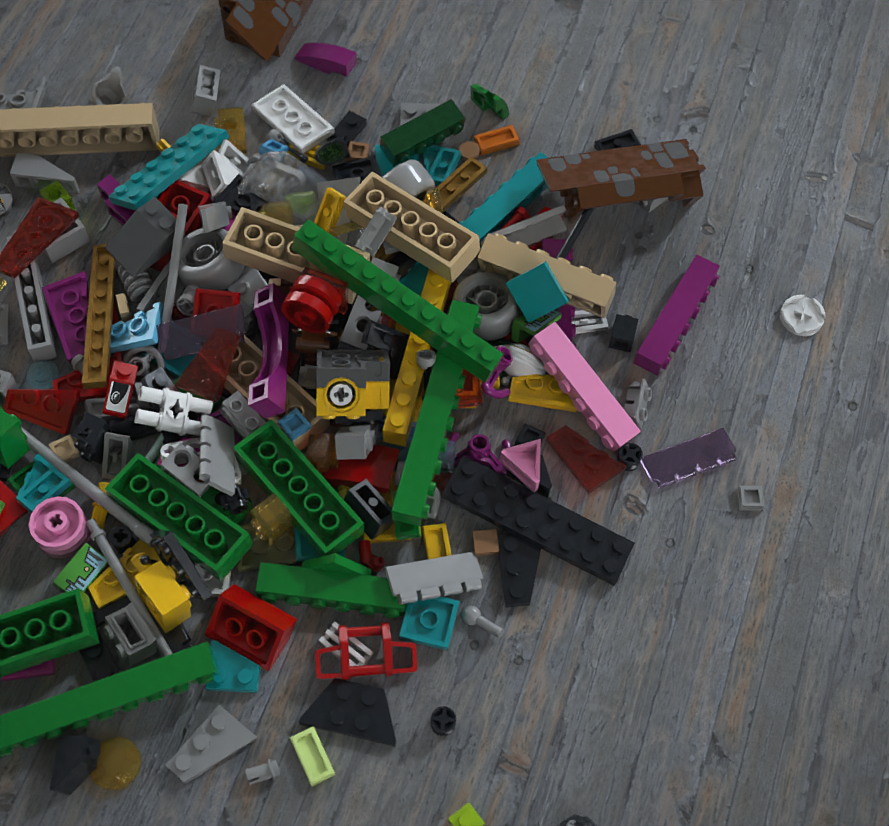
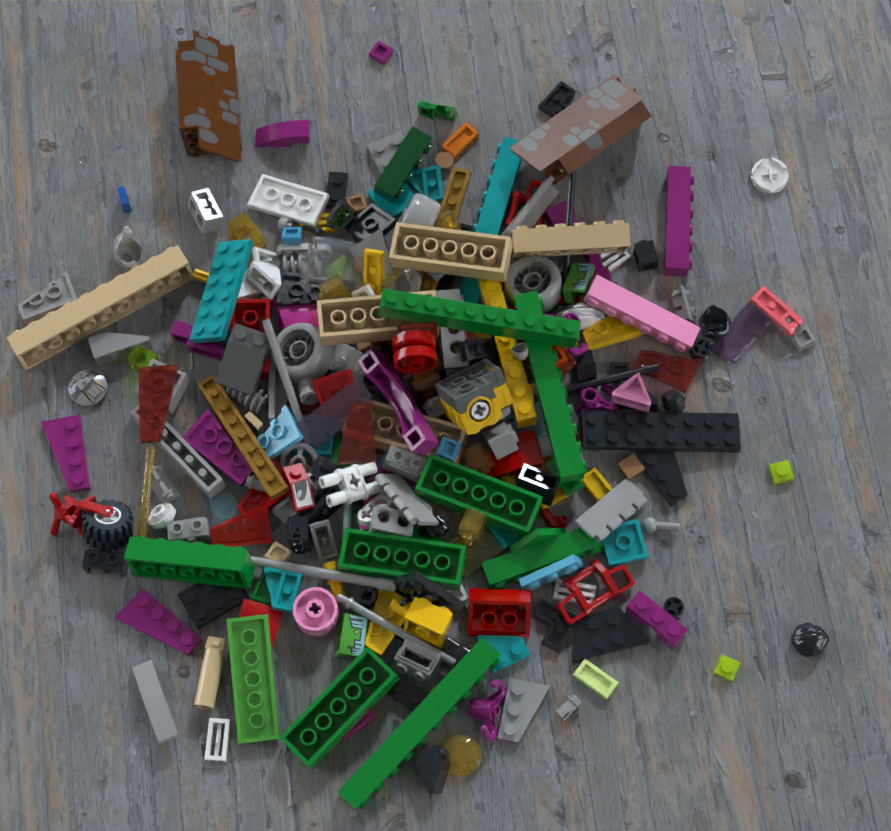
camera: 20 degrees left, 5 degrees up
(138, 48) = (124, 199): none -> blue tile
(172, 728) = (488, 710): none -> magenta piece
(214, 216) = (287, 316): light grey slope -> none
(303, 680) = (558, 630): none -> black tile
(333, 611) = (552, 572): none -> medium azure wing
(376, 231) = (429, 270): light grey hinge -> none
(416, 724) = (647, 611): none -> magenta arch
(466, 28) = (380, 52): none -> magenta tile
(494, 418) = (585, 367): none -> black slope
(537, 292) = (573, 258): teal tile -> none
(555, 446) = (645, 370): none -> black bar
(570, 495) = (673, 401): none -> black rock
(649, 630) = (781, 472): none -> lime plate
(659, 434) = (714, 323): none -> black hair
(735, 453) = (776, 310): none -> coral plate

